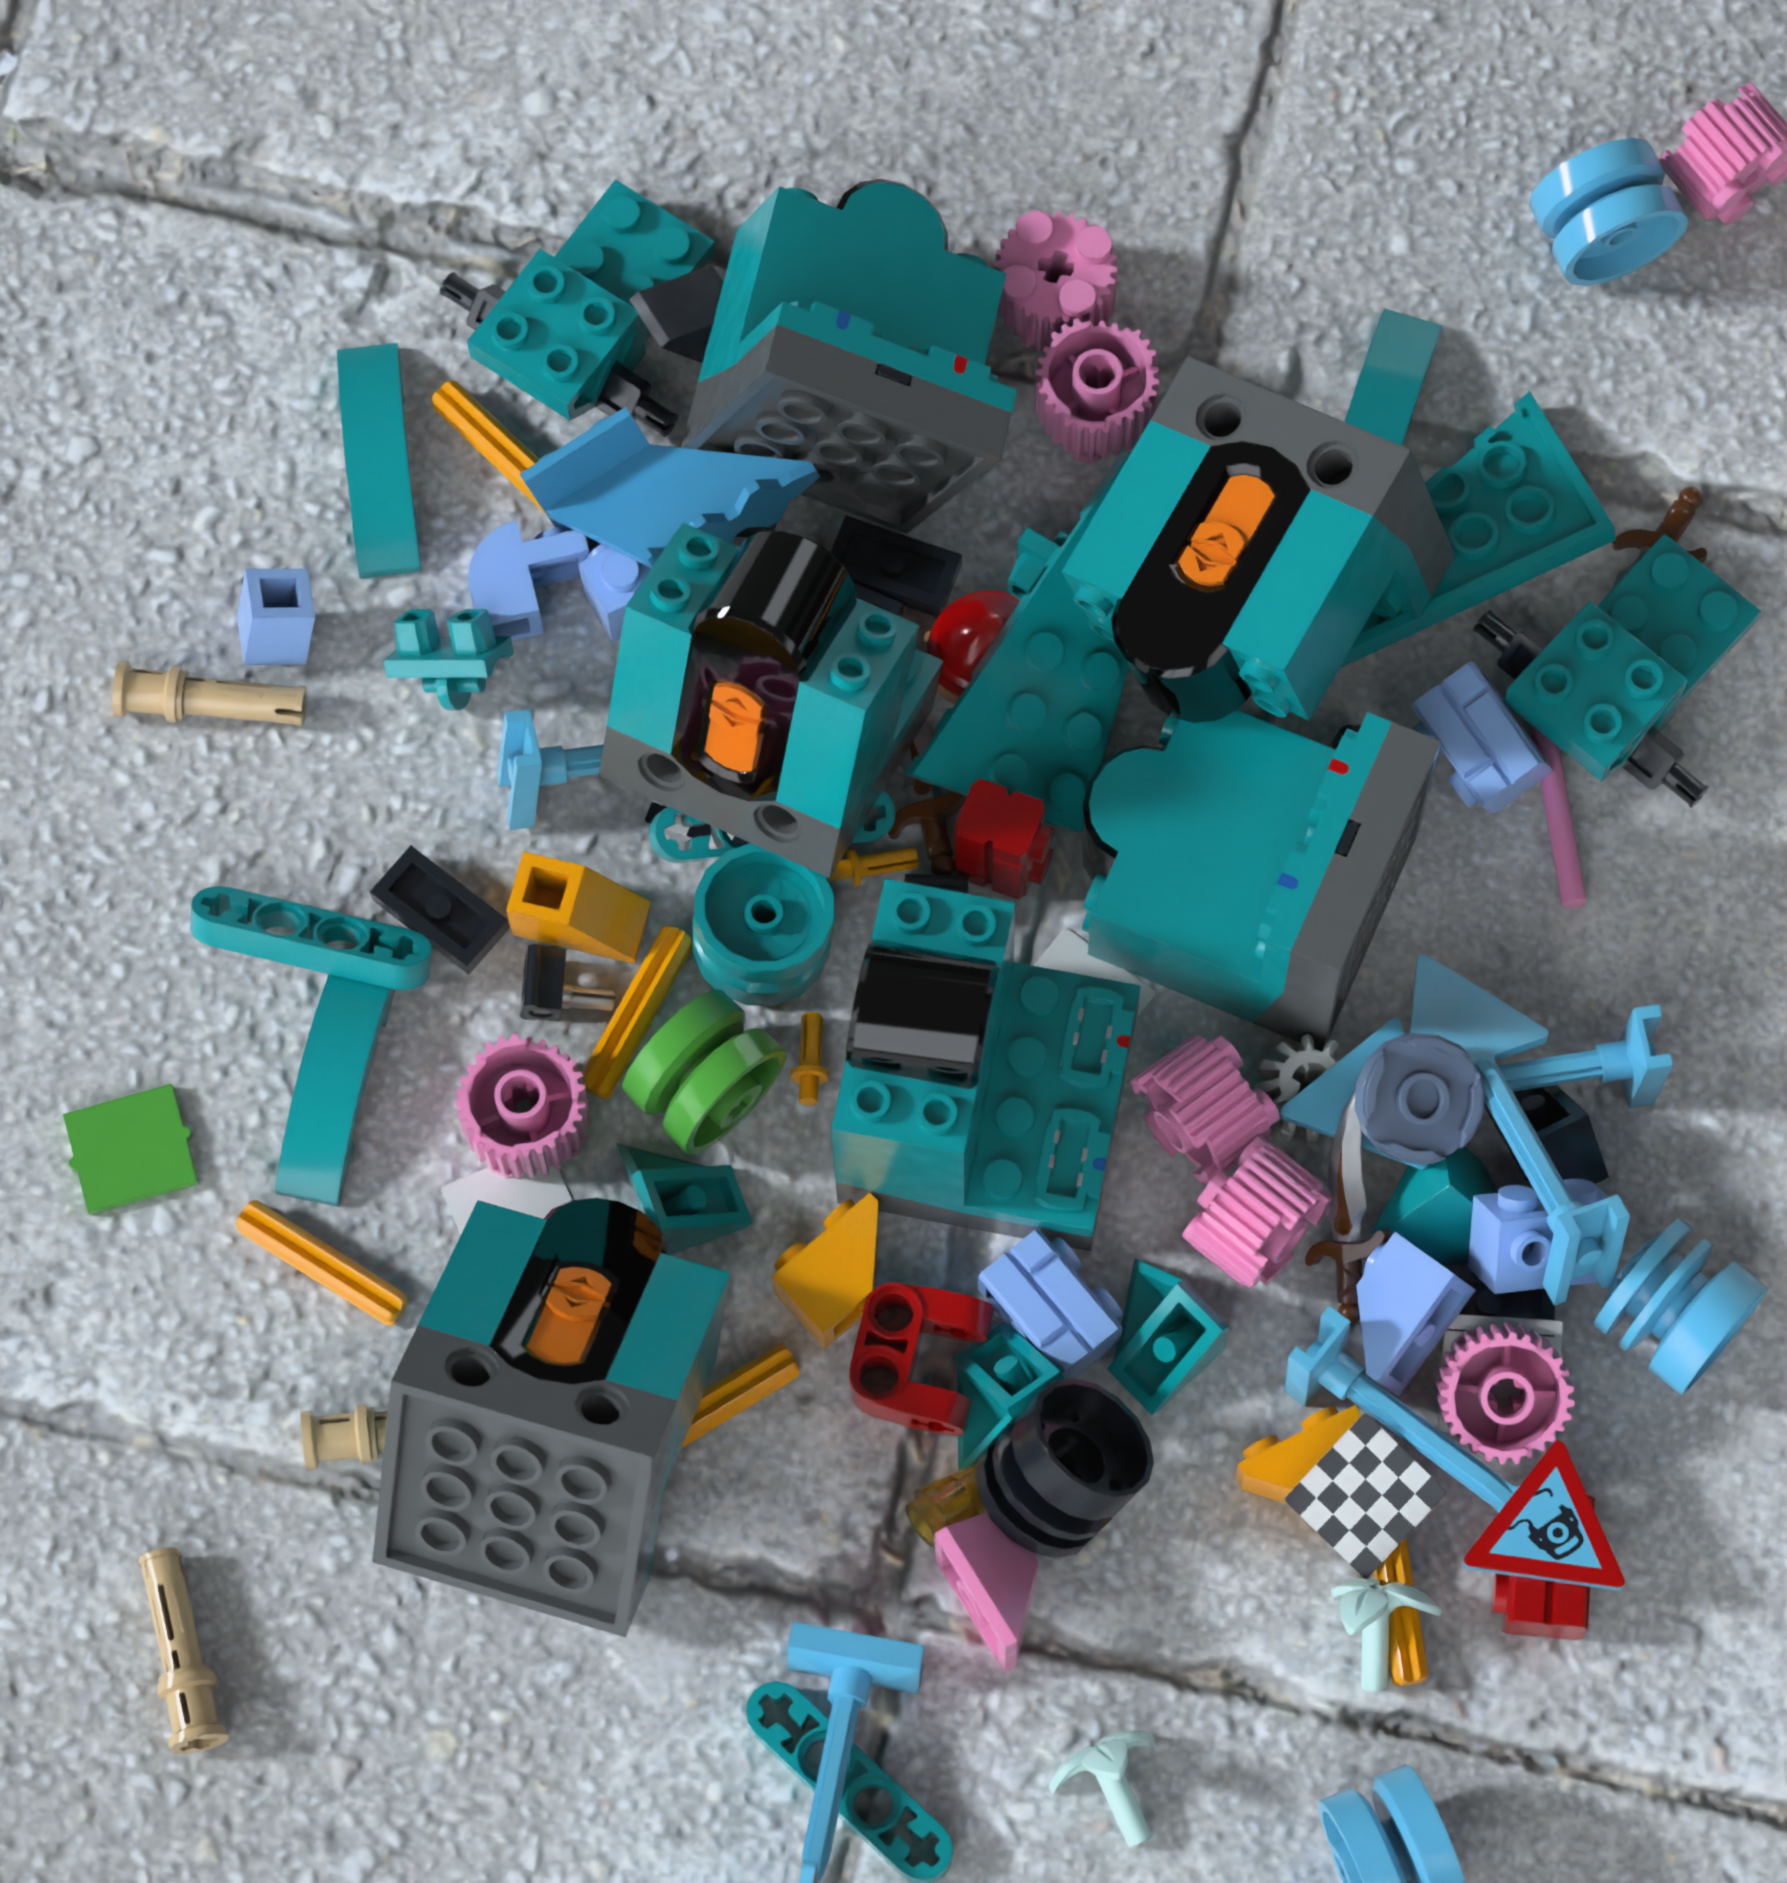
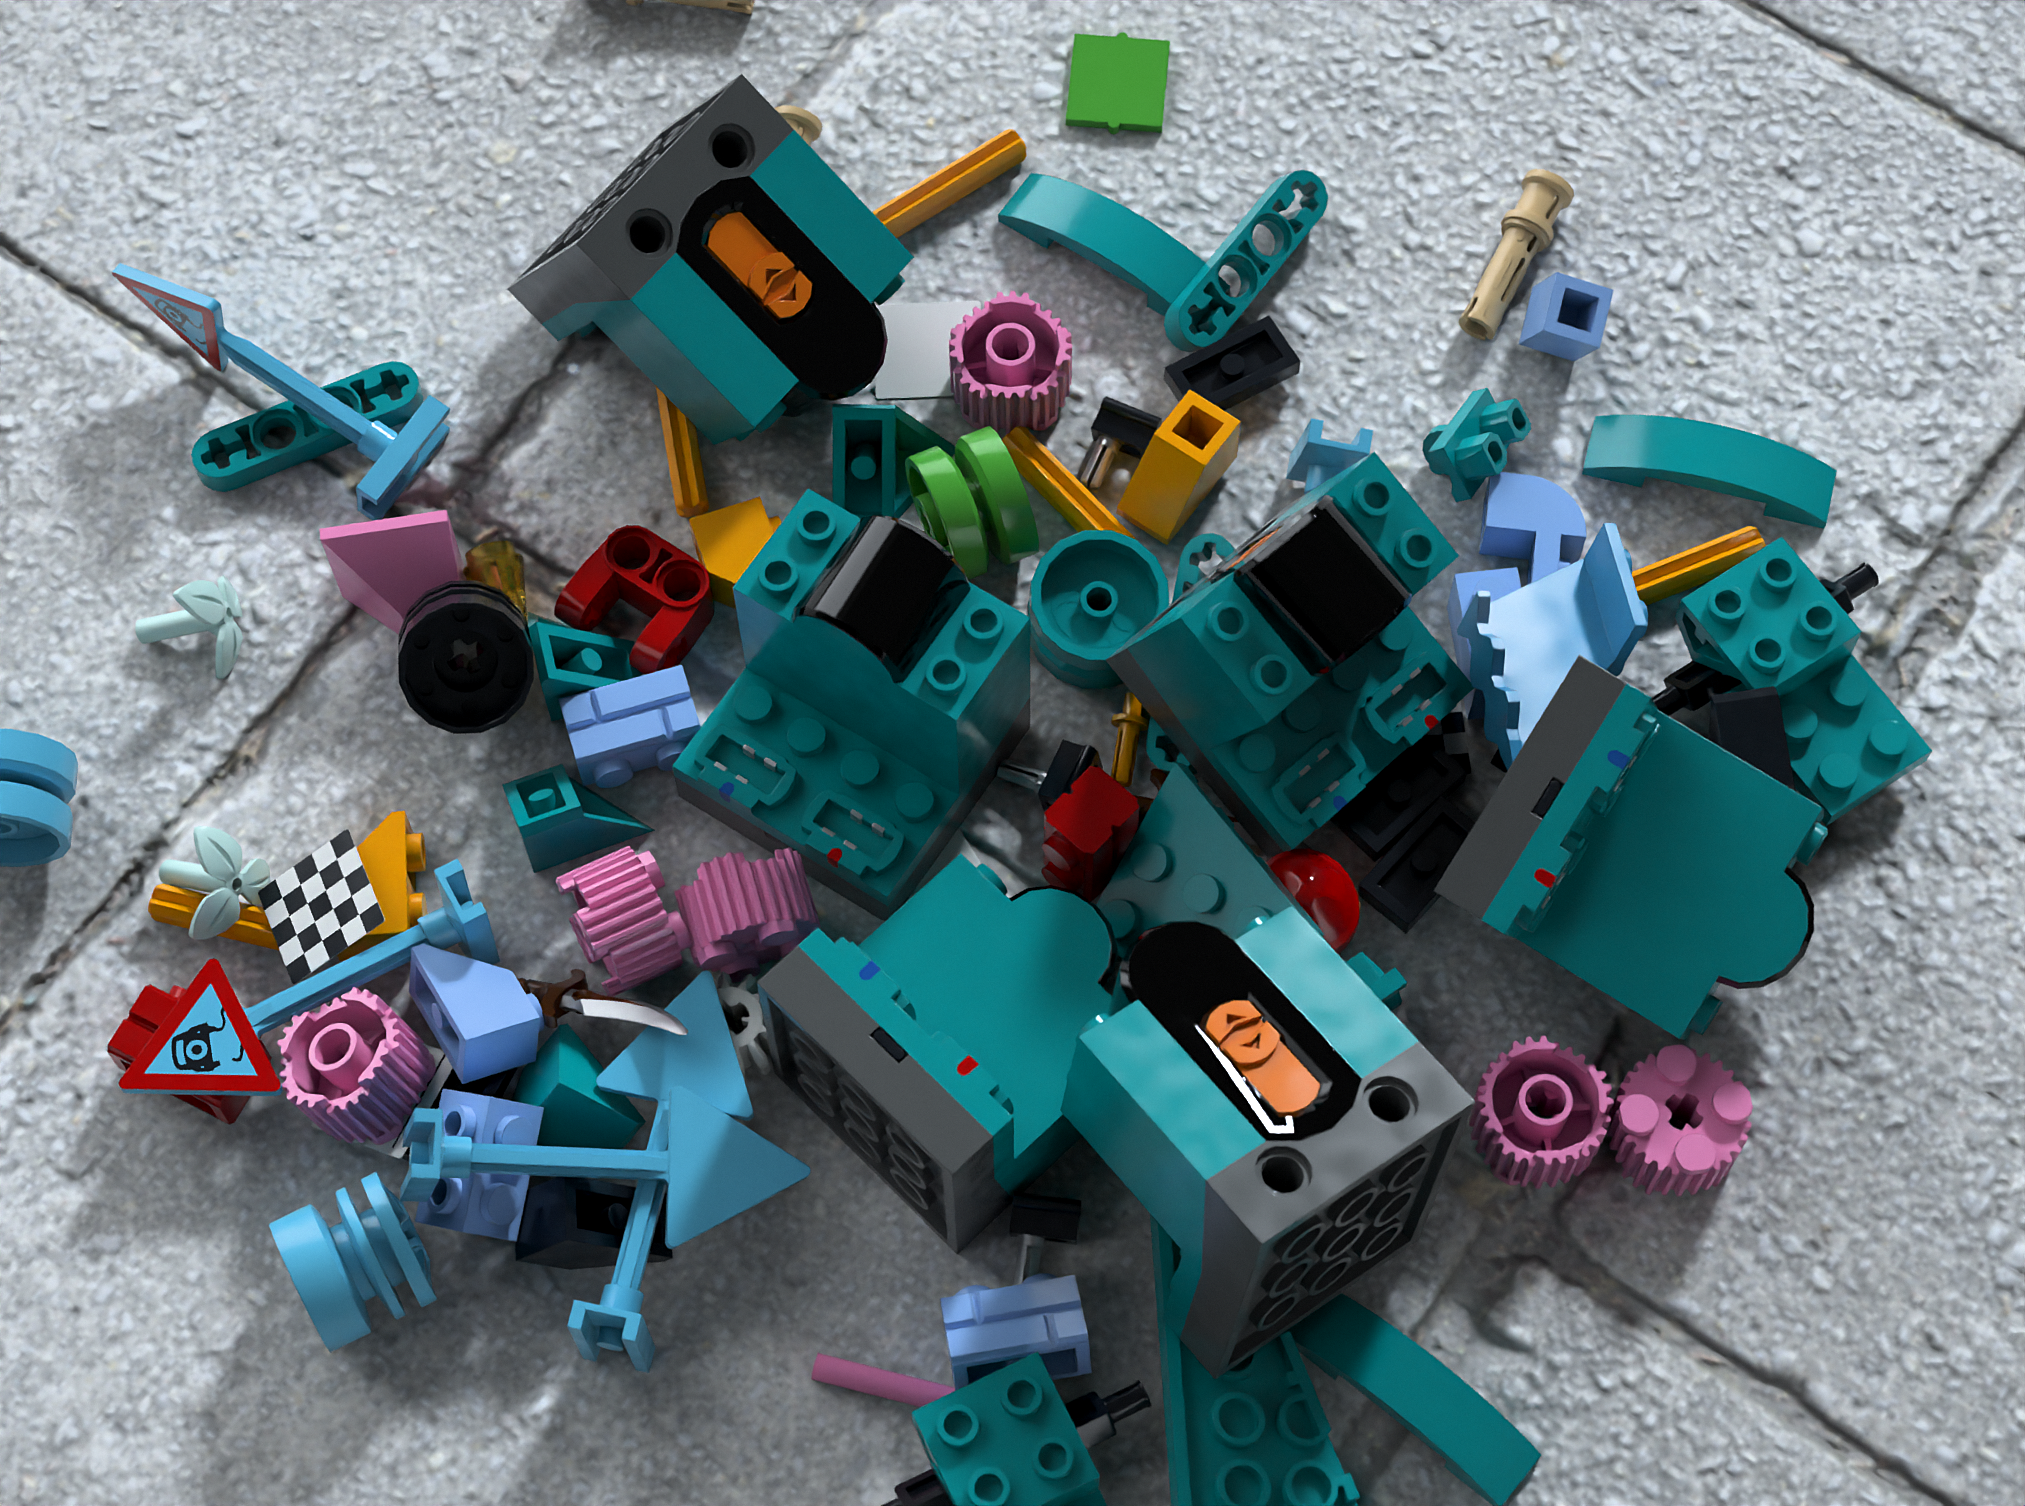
camera: 110 degrees right, 5 degrees down
(1419, 1098) = (651, 1083): sand blue tile -> none

